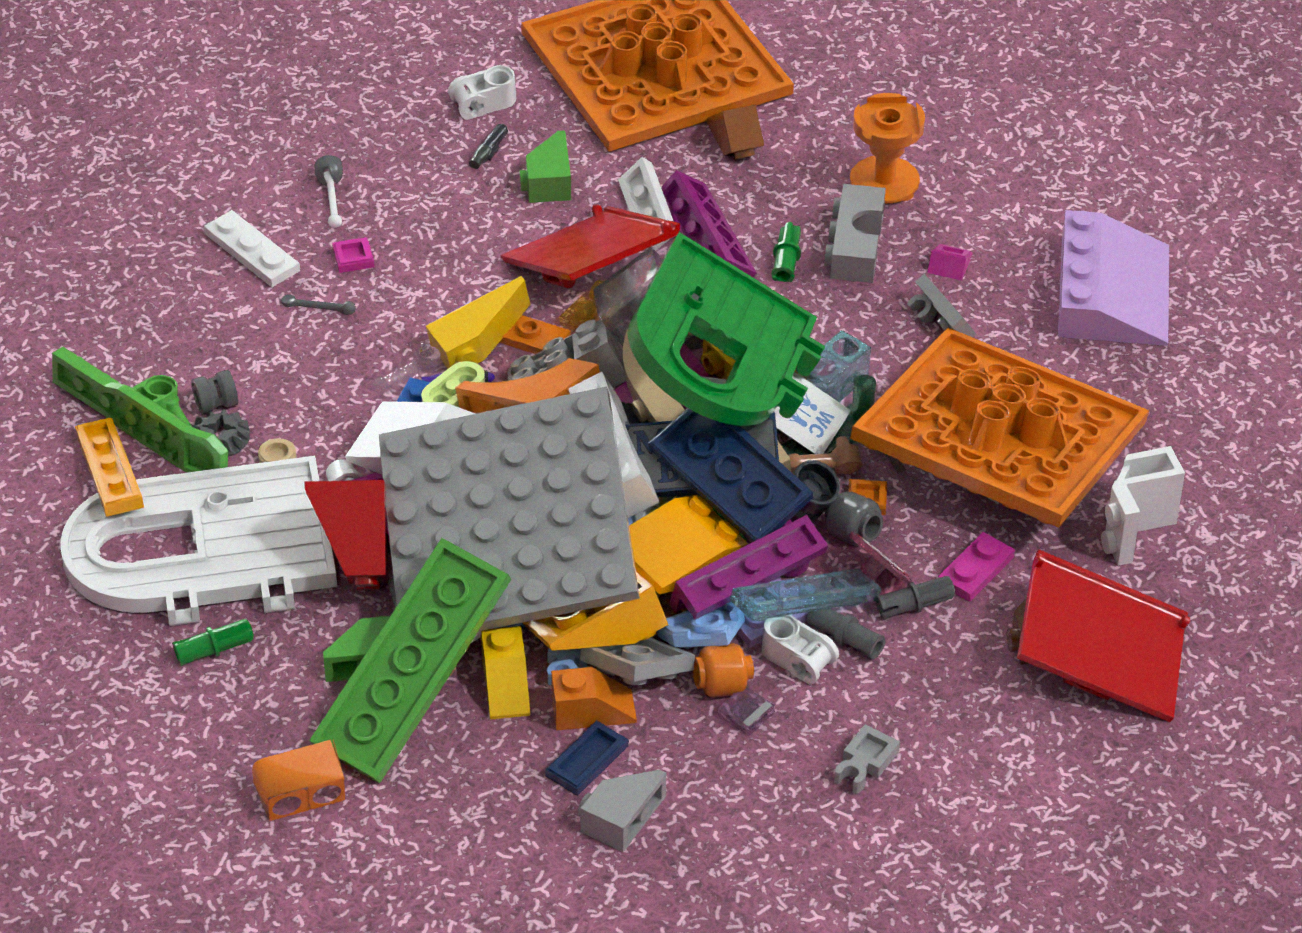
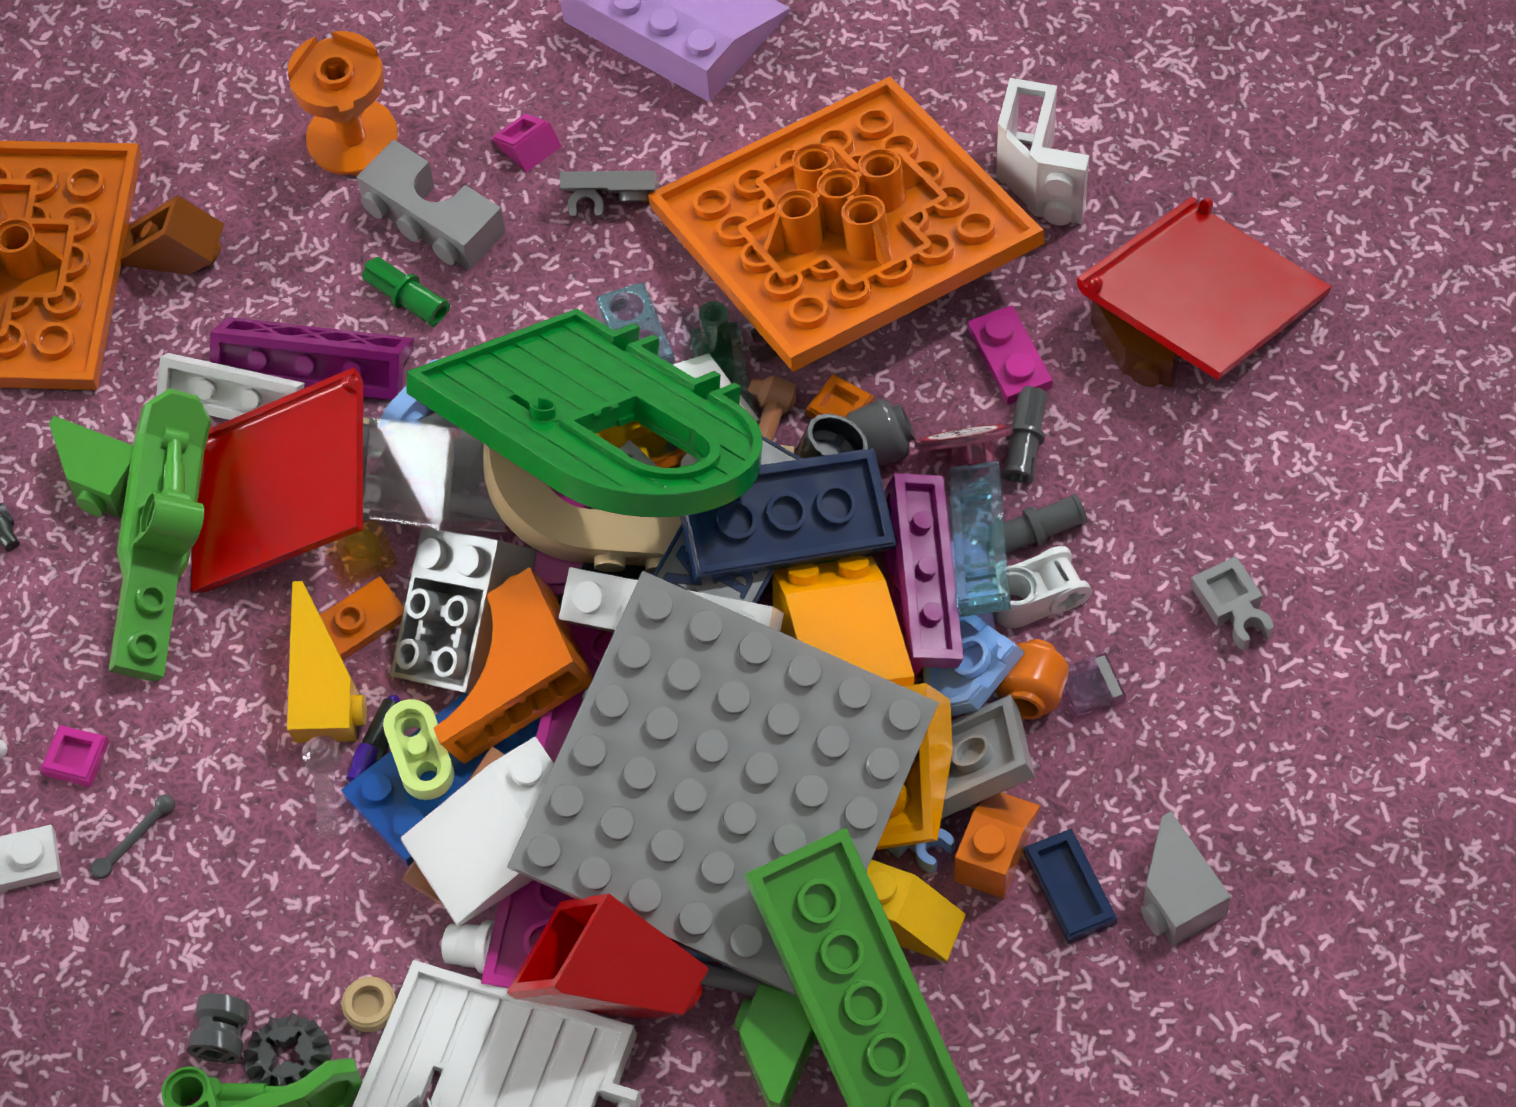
camera: 55 degrees left, 15 degrees up
(525, 212) = (158, 528): none -> bright green piece

